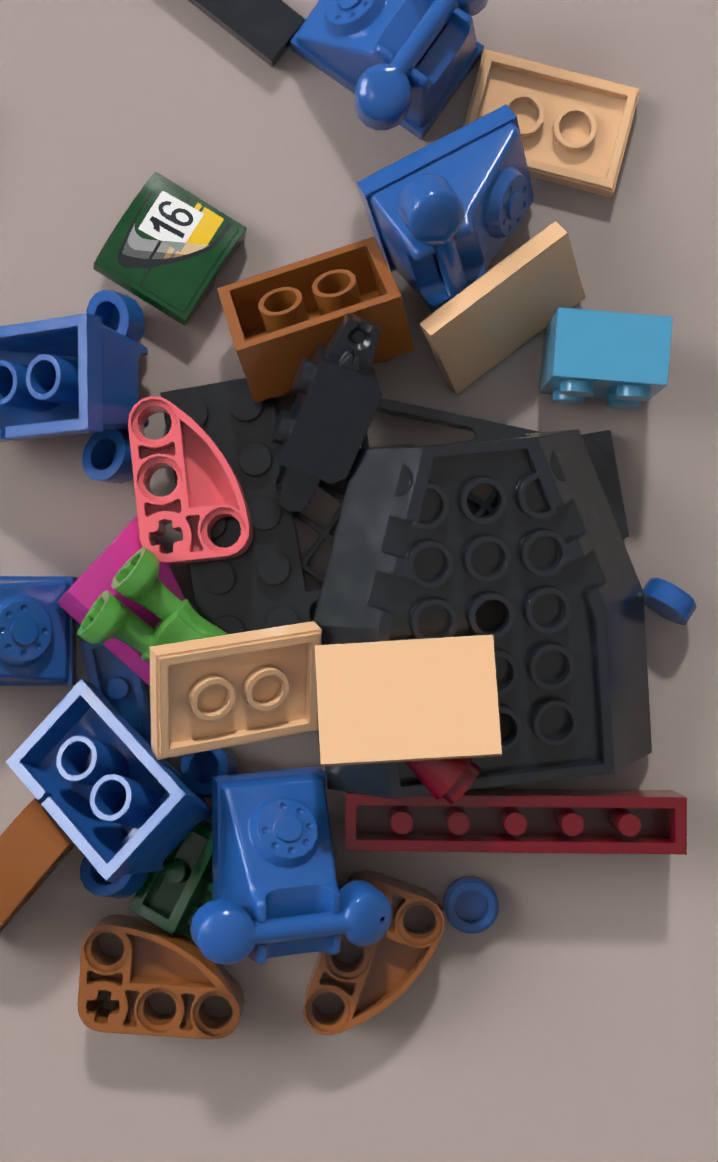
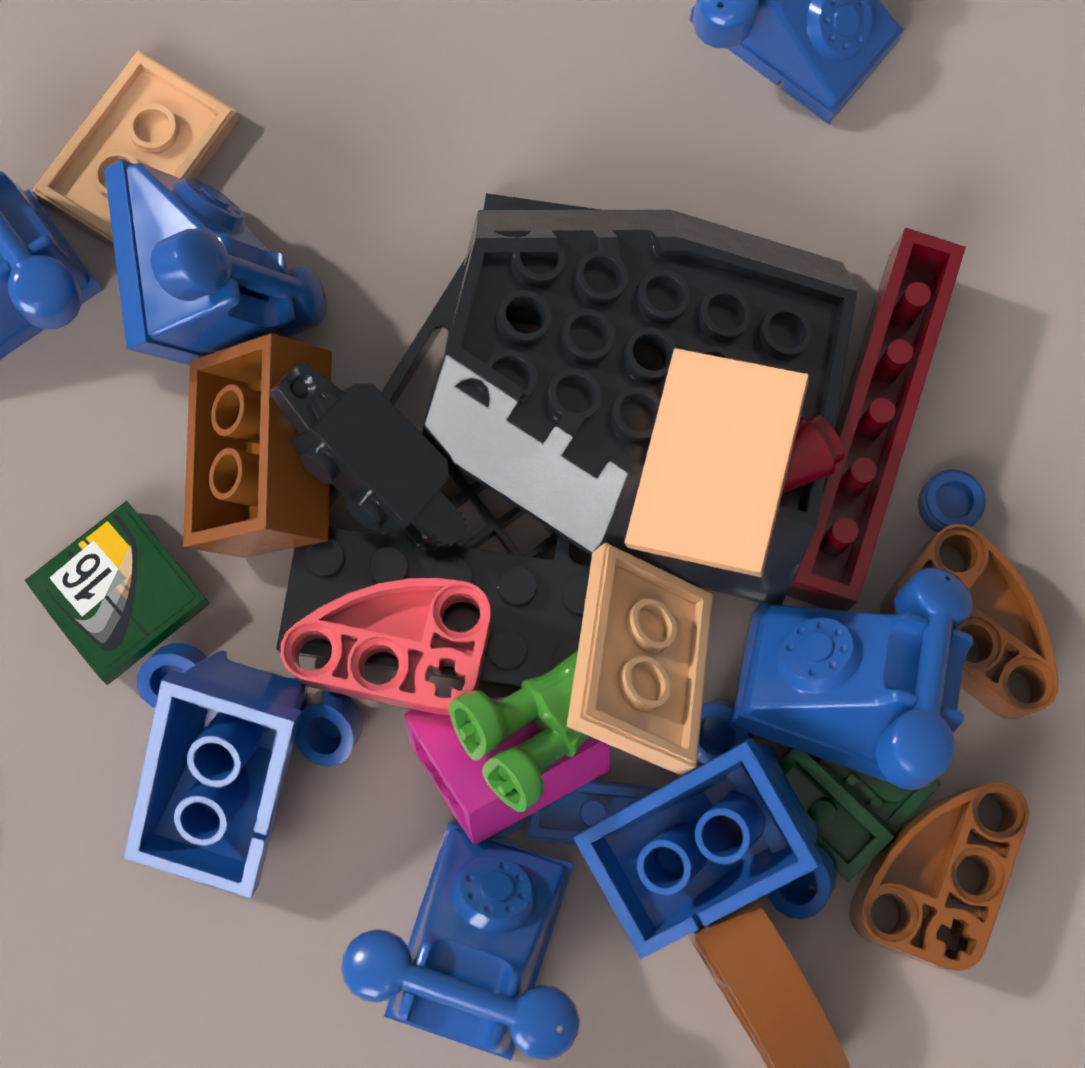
camera: 75 degrees left, 10 degrees down
(504, 308) = (319, 250): light nougat tile -> none
(605, 357) = (409, 165): dark azure brick -> none
(668, 601) = (688, 190): blue tile -> none

